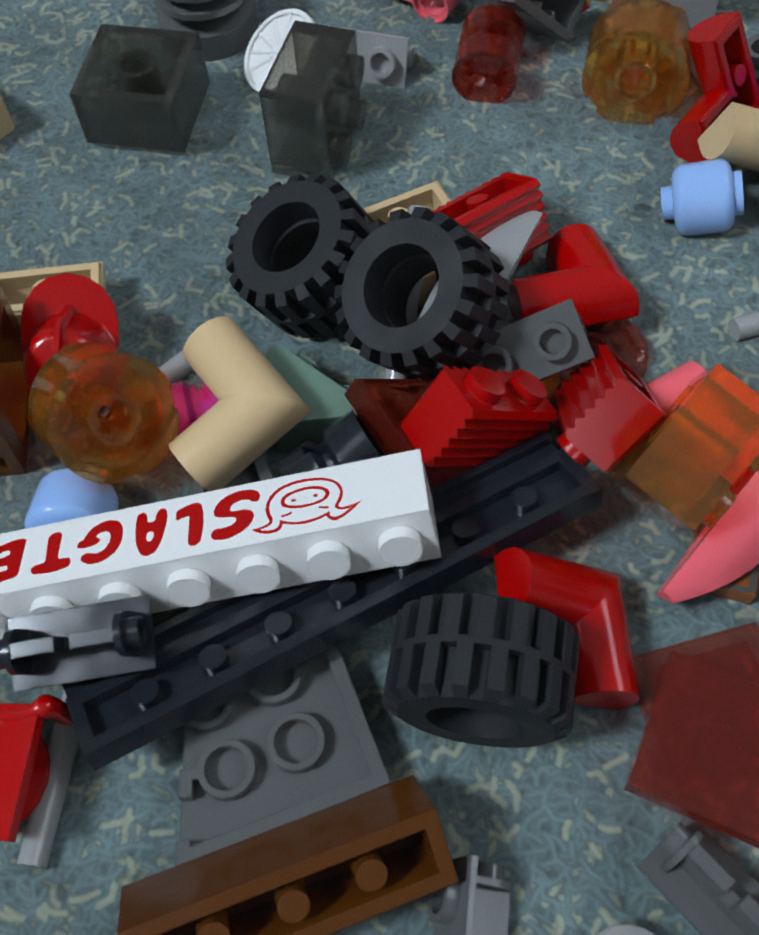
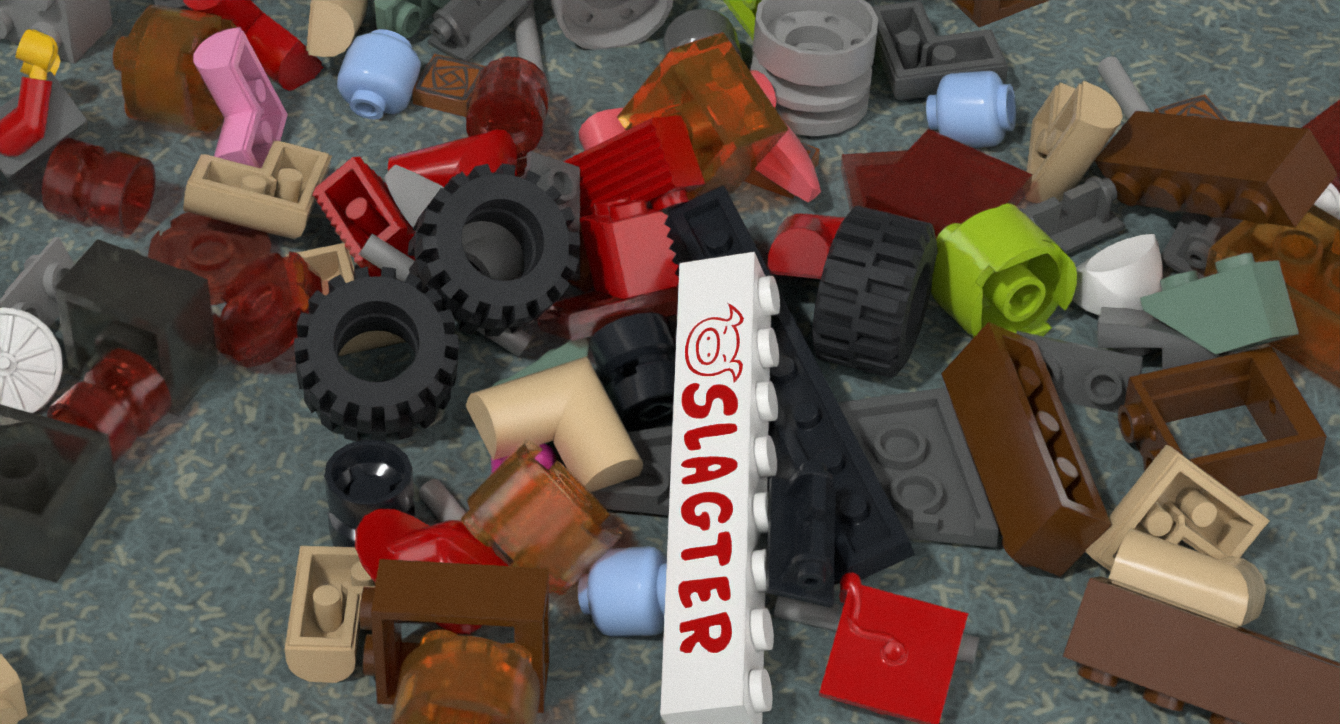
camera: 85 degrees left, 15 degrees down
(153, 295) = (365, 479): none -> black wheel
(231, 117) = (117, 398): none -> clear red wheel
(378, 183) = (264, 308): none -> clear red tile
(434, 150) = (210, 260): none -> clear red tile
(499, 146) = (264, 198): none -> tan brick
(570, 826) = (1001, 273): none -> lime brick
(614, 122) = (243, 95): none -> bright pink brick
(686, 294) = (513, 98): none -> clear red wheel
(726, 259) = (446, 85): none -> dark orange tile

